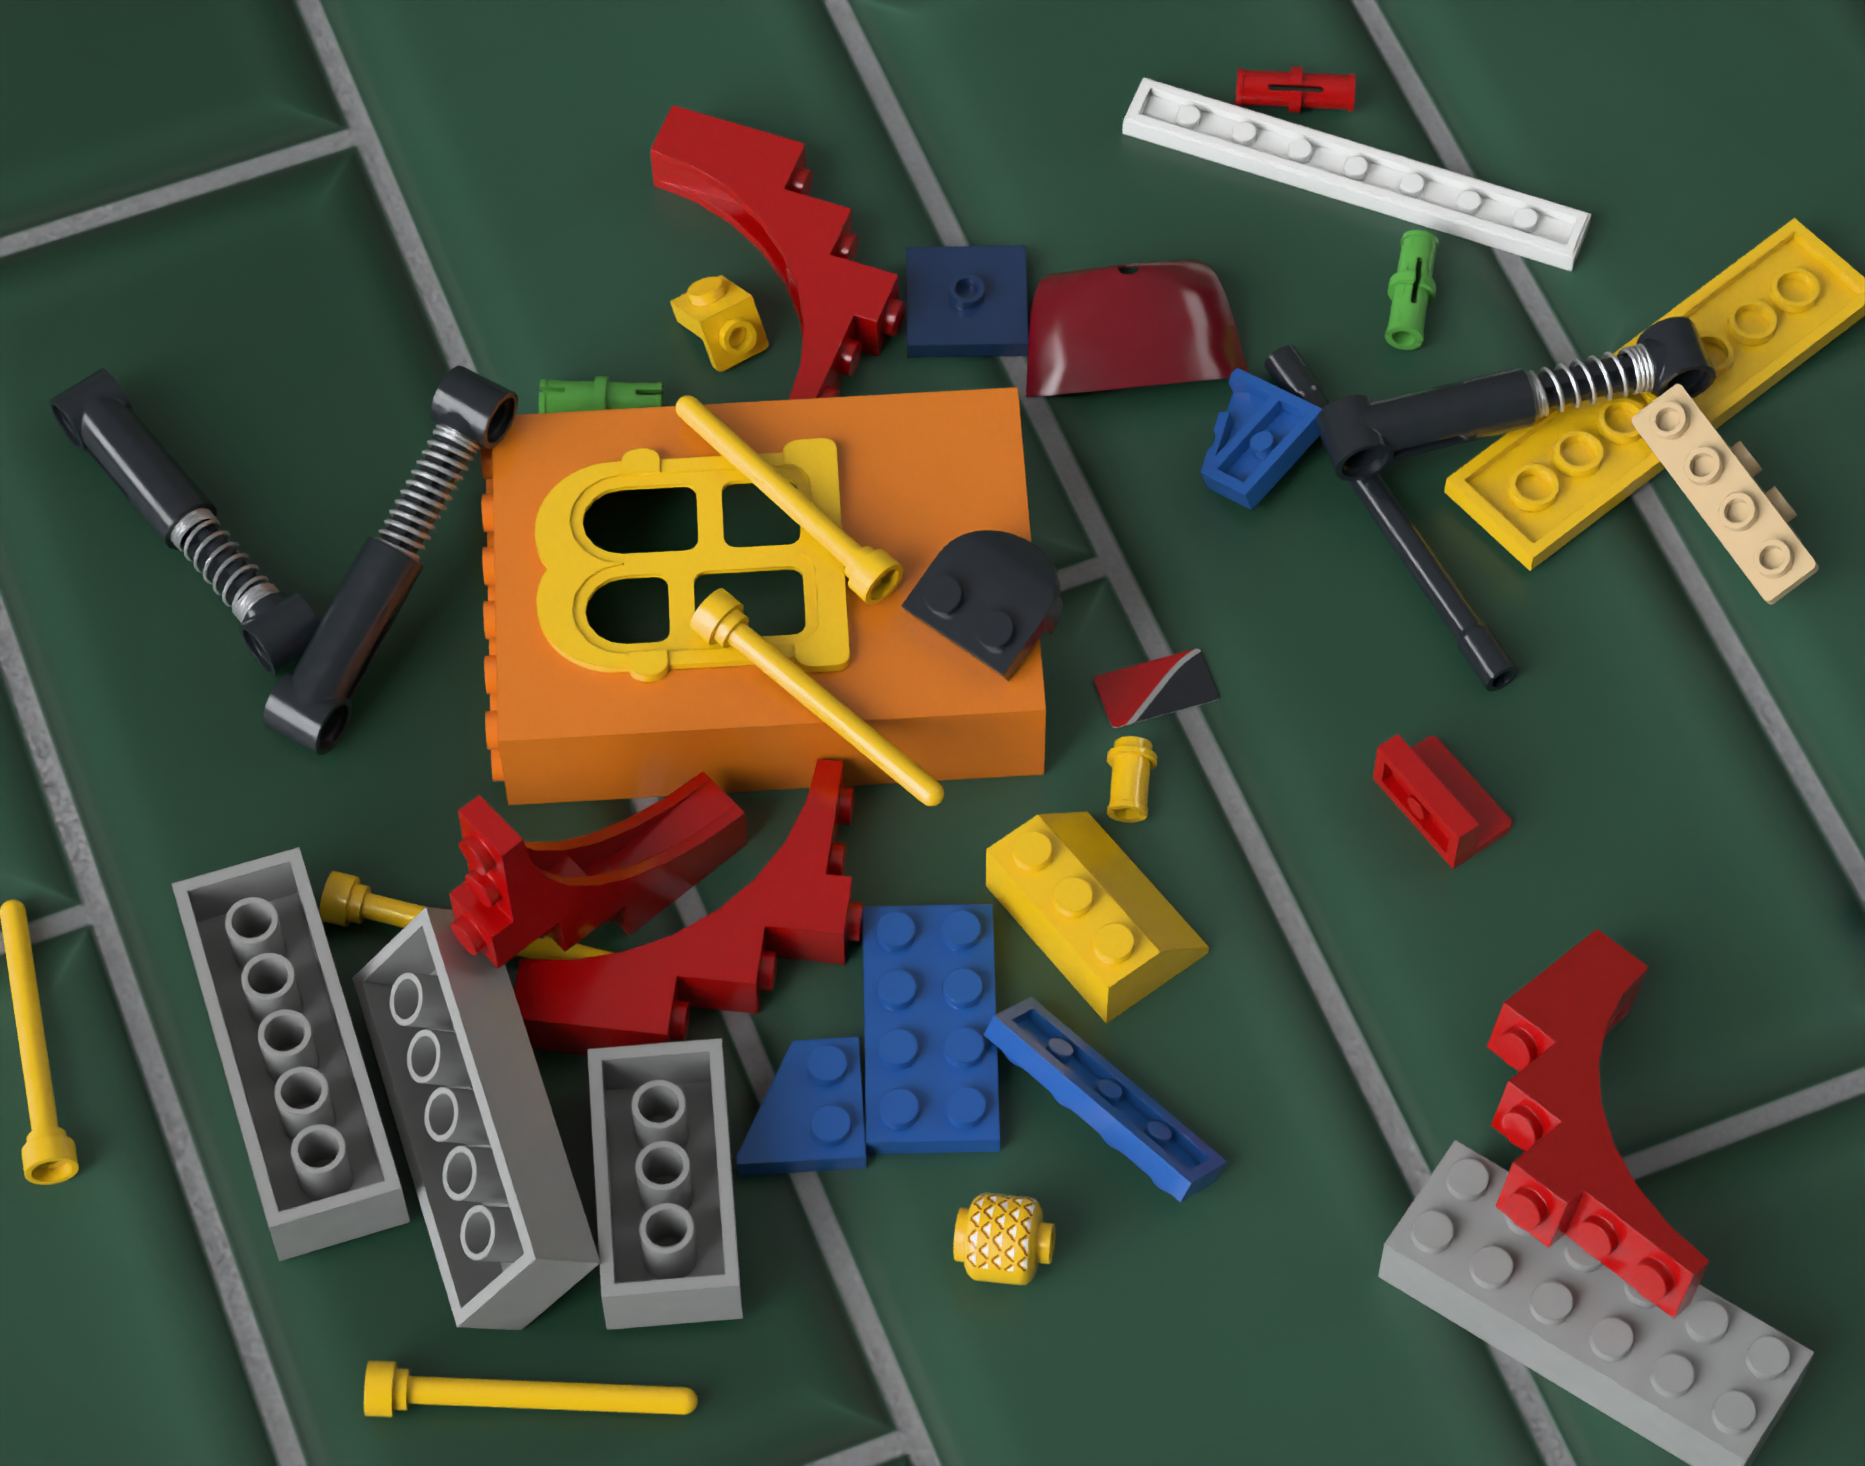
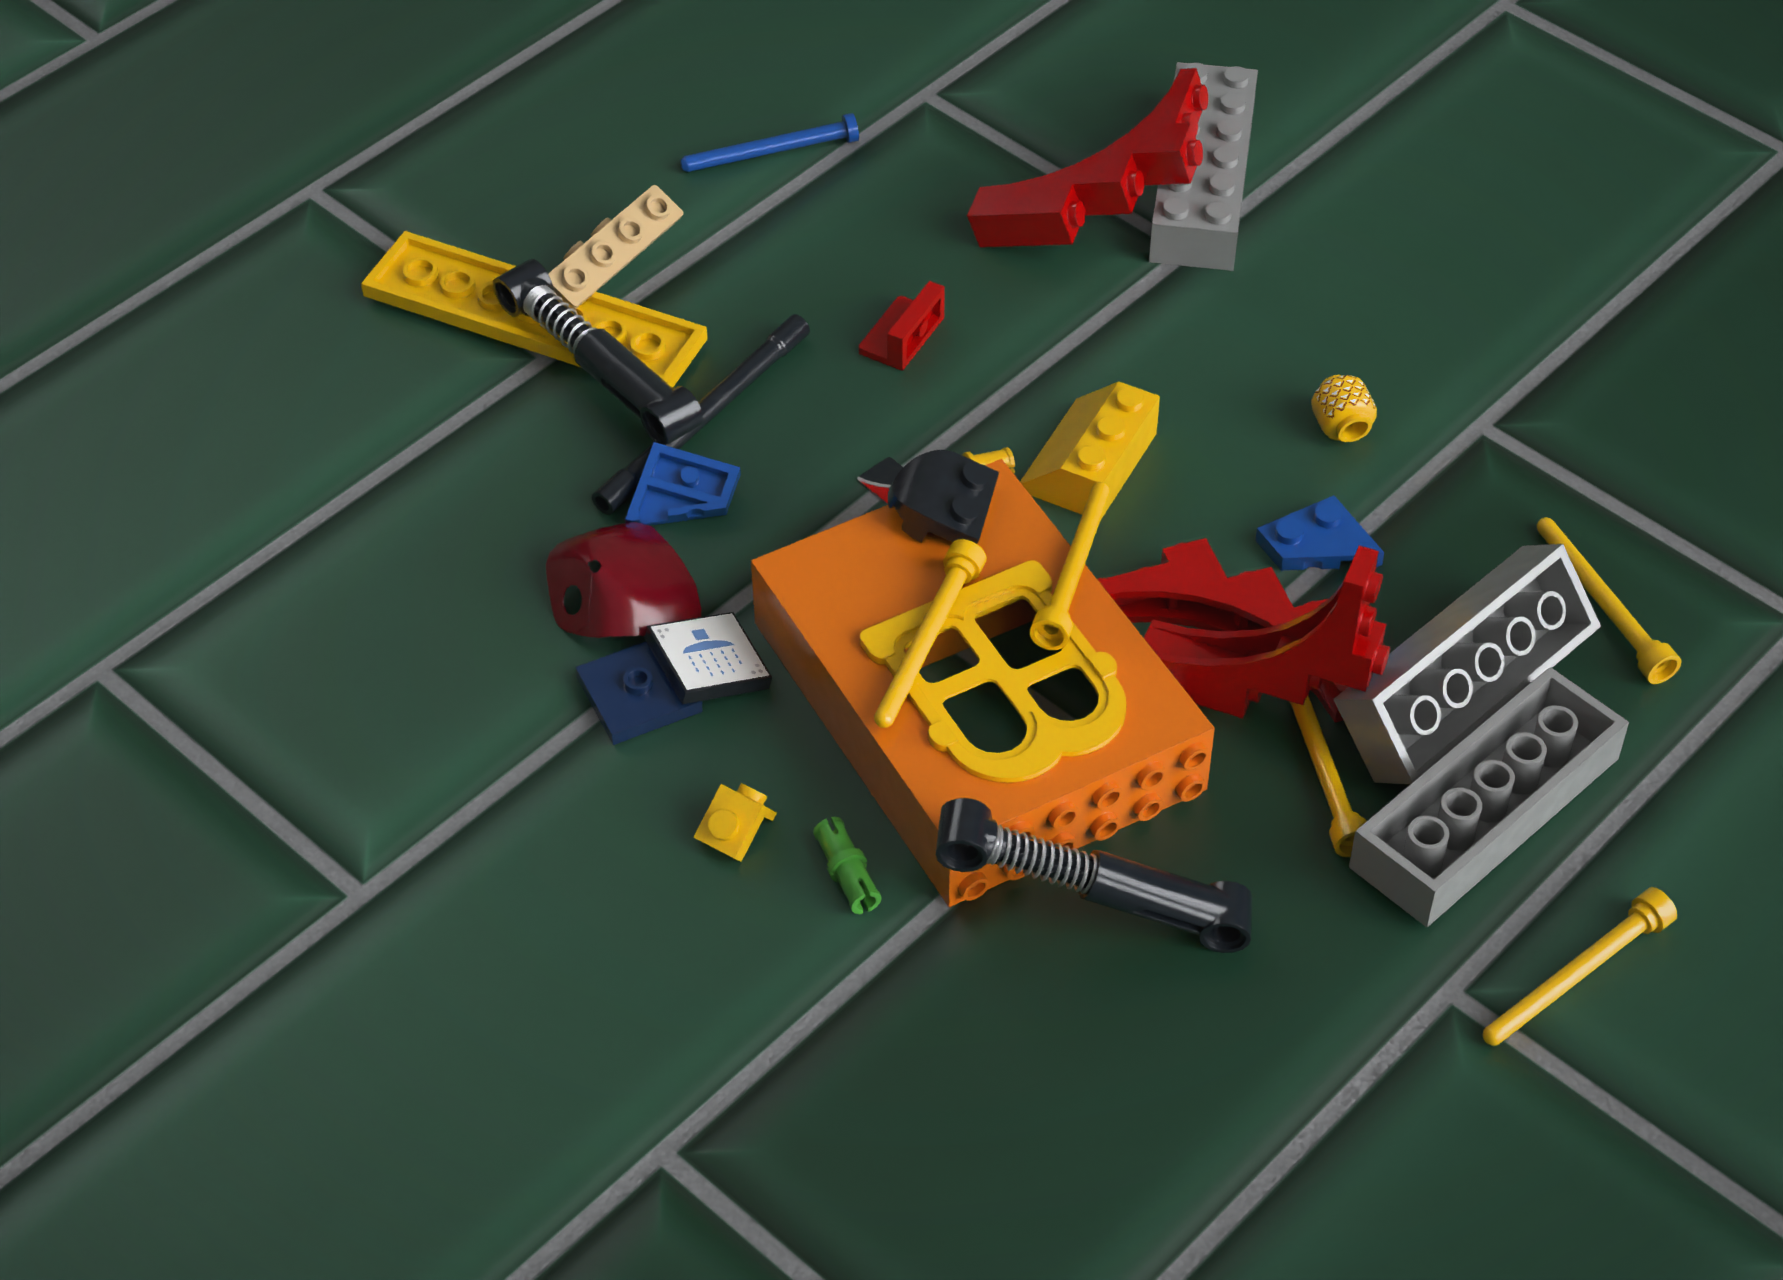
camera: 115 degrees left, 10 degrees down
(102, 422) = (1060, 1175): black piece -> none
(664, 1184) = (1434, 557): light grey brick -> none
(764, 191) = (646, 786): red arch -> none
(925, 1026) = (1220, 500): blue plate -> none
(967, 351) = (707, 657): none -> white tile
(1105, 1099) = (1217, 401): blue plate -> none
(1336, 93) = (355, 567): red pin -> none
(1357, 174) = (413, 527): white tile -> none
(1412, 289) = (510, 452): bright green pin -> none

